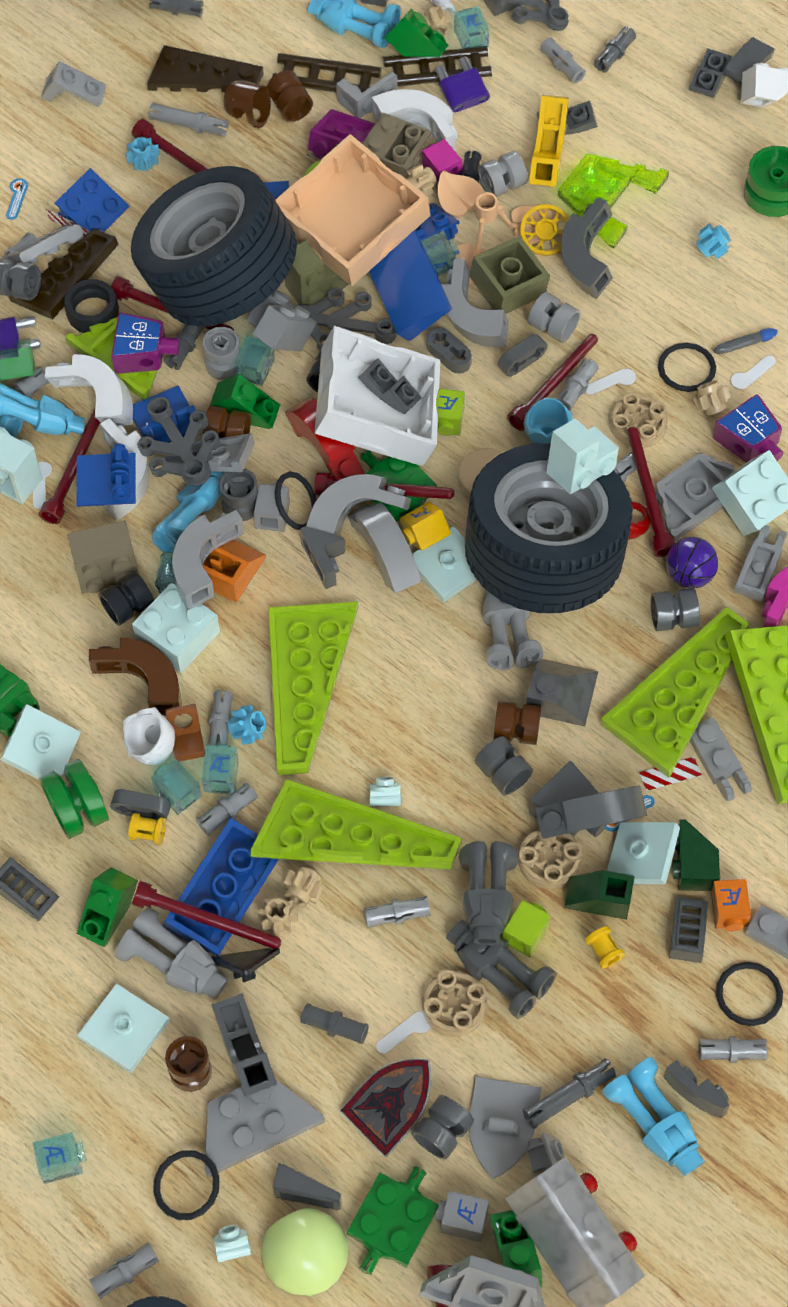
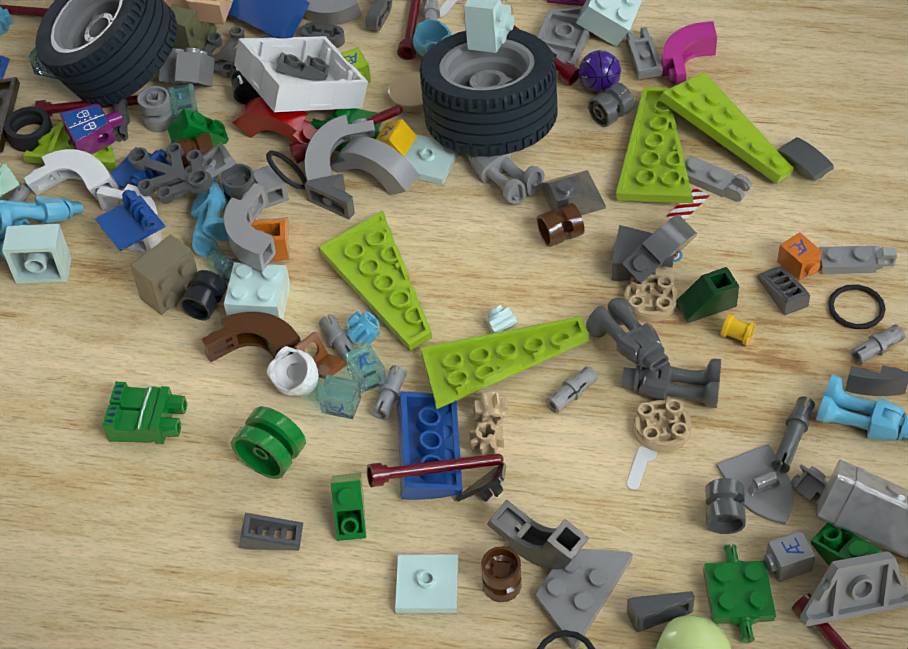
camera: 30 degrees left, 10 degrees down
(39, 492) = (75, 266): white sticker -> none
(39, 743) = (208, 424): light aqua plate -> none
(52, 510) = (97, 269): dark red piece -> none
(130, 802) = (323, 423): dark grey beam -> none
(147, 829) = (334, 440): yellow bush -> none
(189, 971) = (448, 513): light grey piece -> none
(334, 1023) = (587, 486): dark grey pin -> none
(390, 1102) = (673, 513): shield -> none
(500, 762) = (573, 255): dark grey wheel -> none
(527, 928) = (676, 345): lime brick -> none
(644, 850) = (715, 251): light aqua plate -> none
(696, 860) = (752, 242): dark green slope -> none

